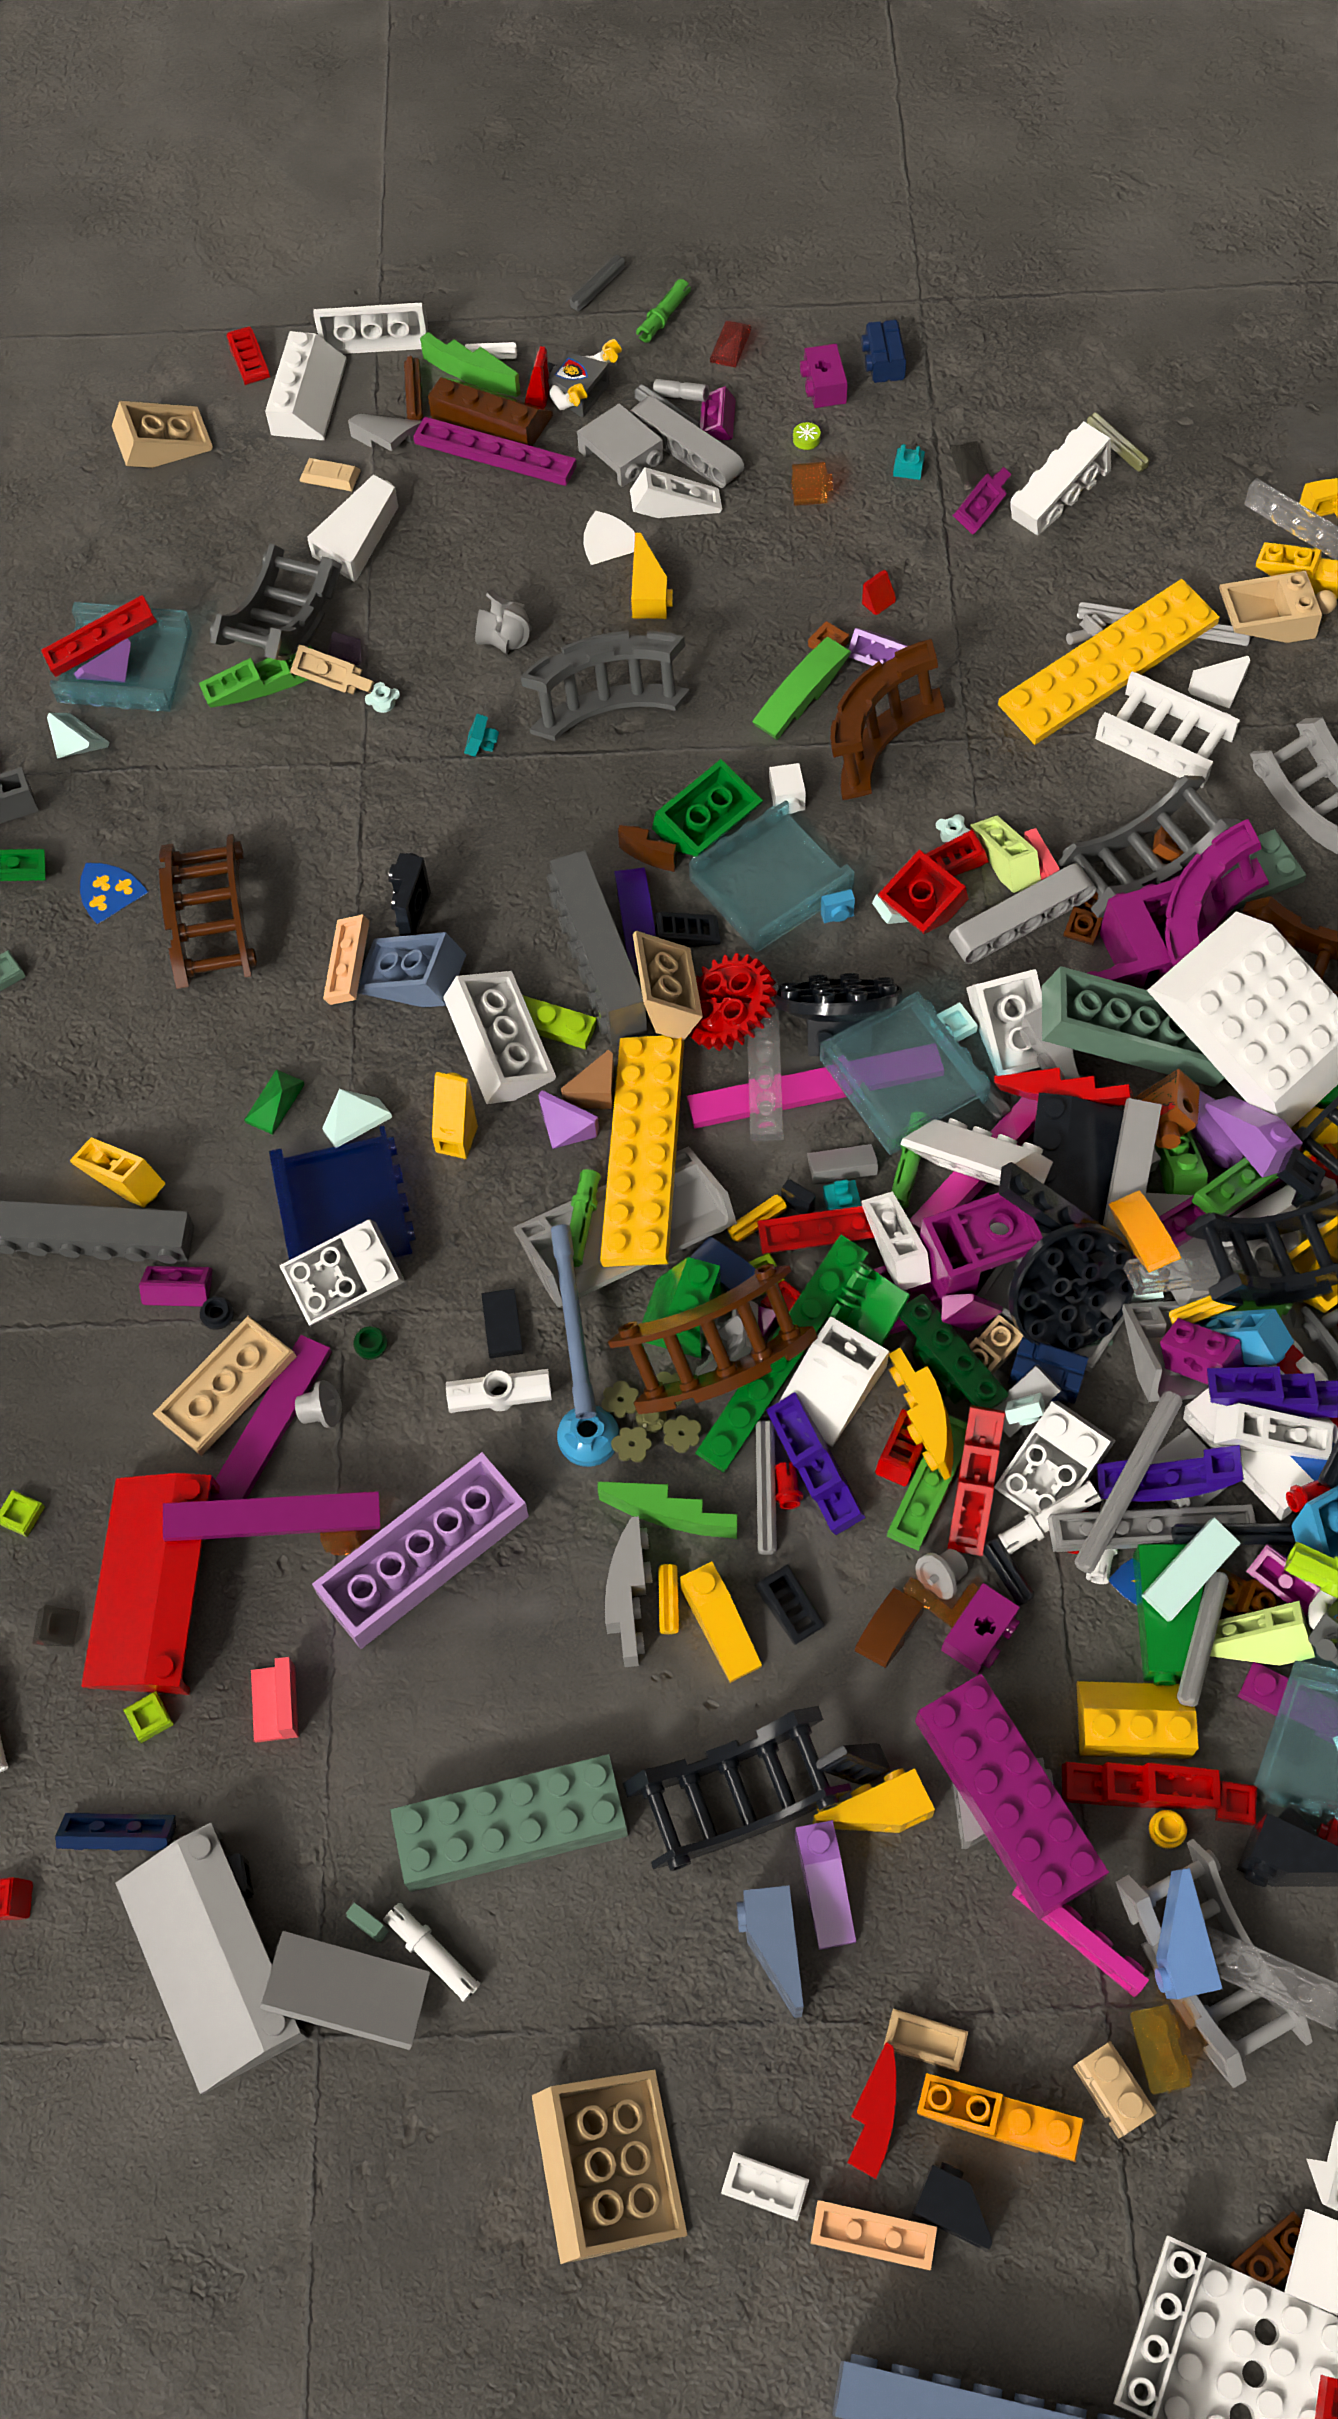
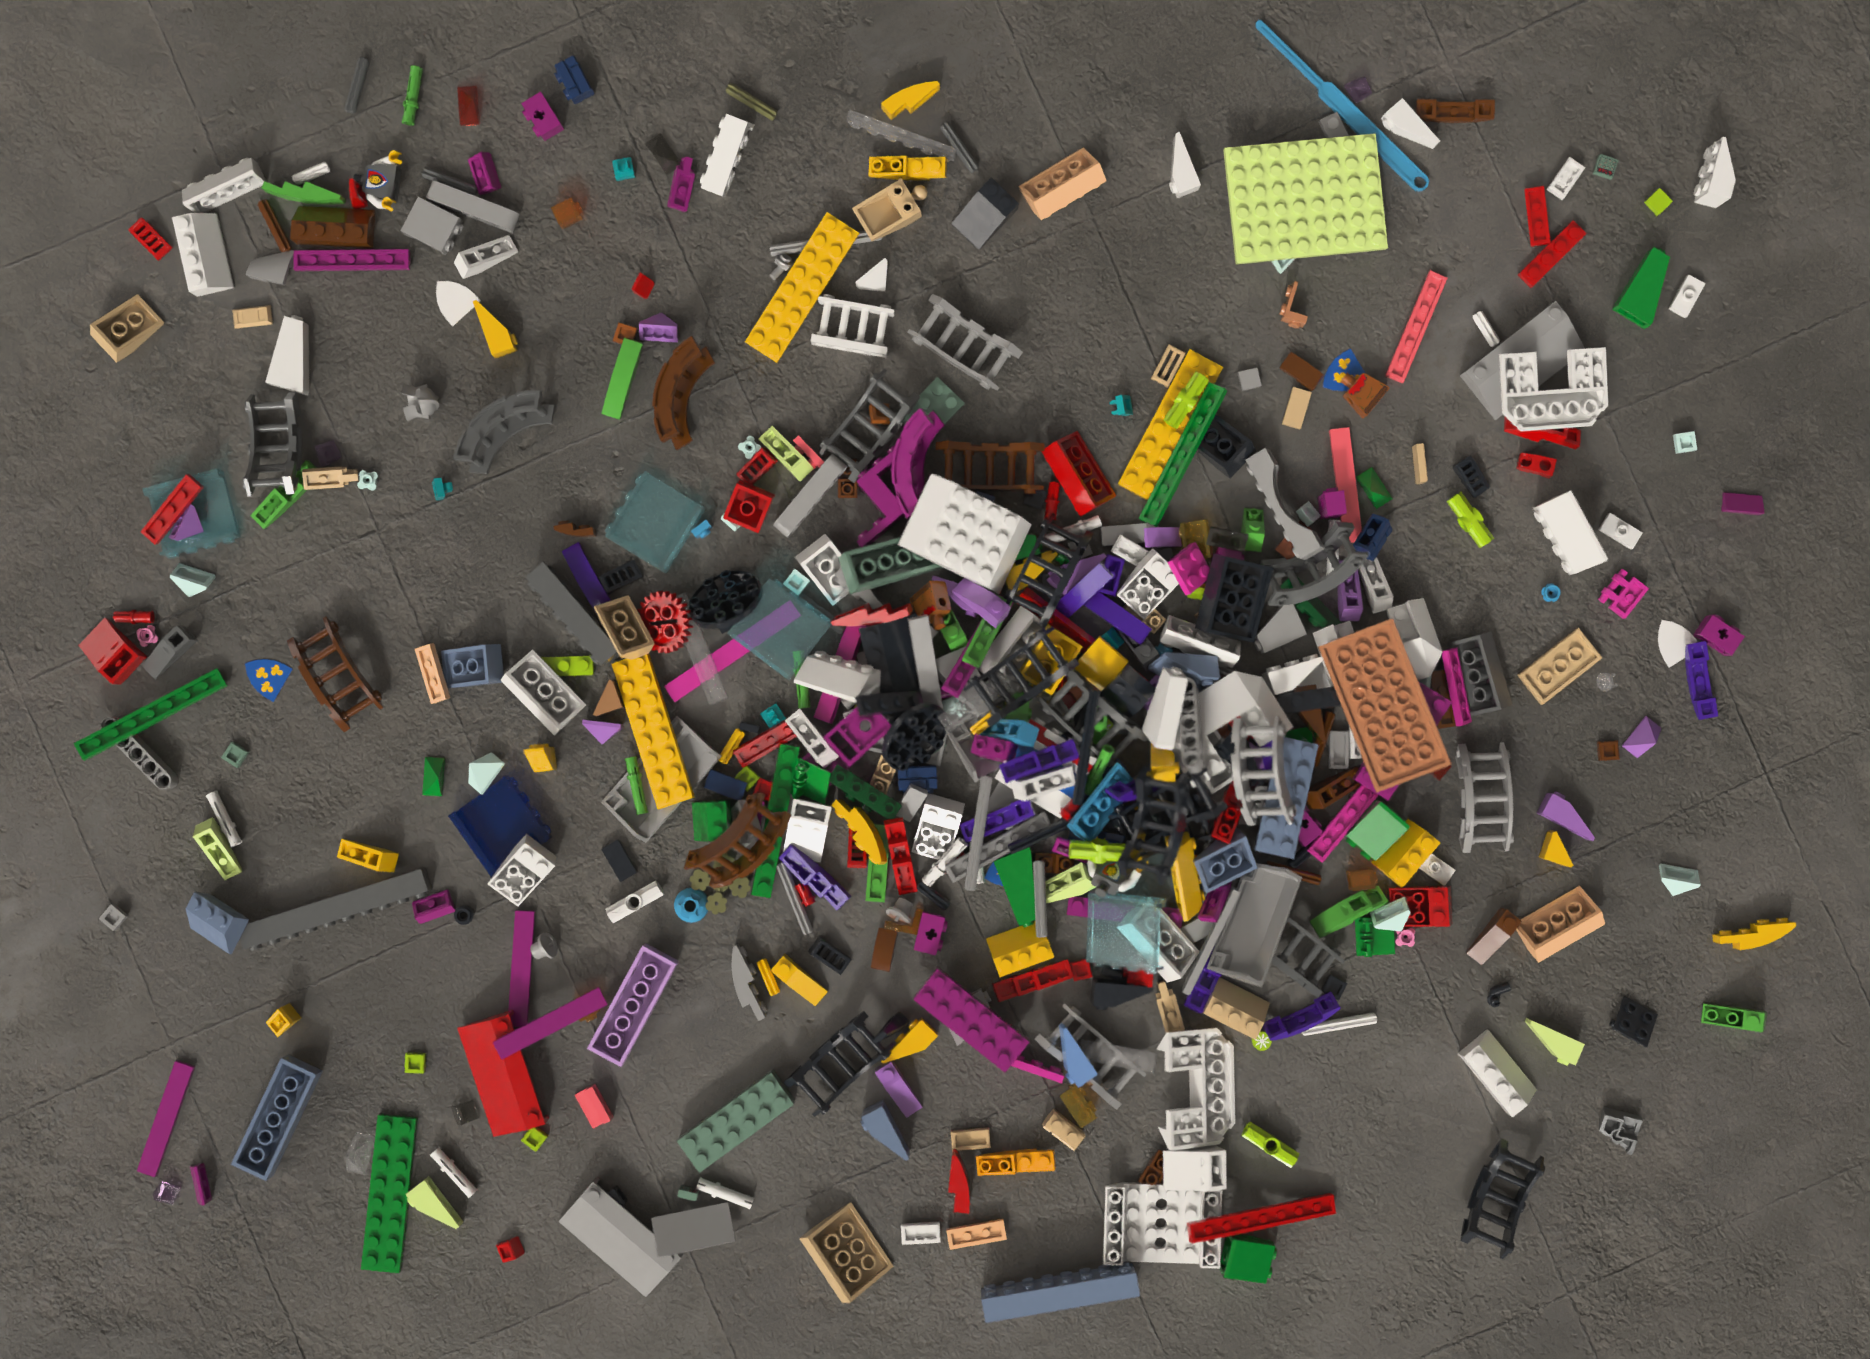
camera: 25 degrees left, 25 degrees up
(115, 1831) = (547, 1199): dark blue plate -> none
(224, 1385) = (488, 954): tan tile -> none
(370, 1343) = (554, 899): dark green plate -> none
(410, 892) = (450, 616): black plate -> none
(582, 1388) = (679, 889): sand blue piece -> none
(653, 1505) = (742, 931): bright green slope -> none
(685, 390) = (455, 163): light grey piece -> none
(705, 810) = (601, 496): green slope -> none
(788, 785) = (641, 457): white brick -> none
(806, 436) = (549, 170): lime tile -> none
(842, 1163) = (765, 693): light grey slope -> none
(952, 2206) = (1007, 1209): black slope -> none
(968, 1311) = (863, 764): magenta slope -> none
(1025, 1409) = (912, 811): light aqua plate -> none
(1144, 1231) = (942, 697): light orange slope -> none
(1167, 1829) = (1052, 996): yellow plate -> none
(1190, 1569) = (1023, 867): light aqua tile -> none
(1302, 1176) = (1015, 627): black bracket -> none

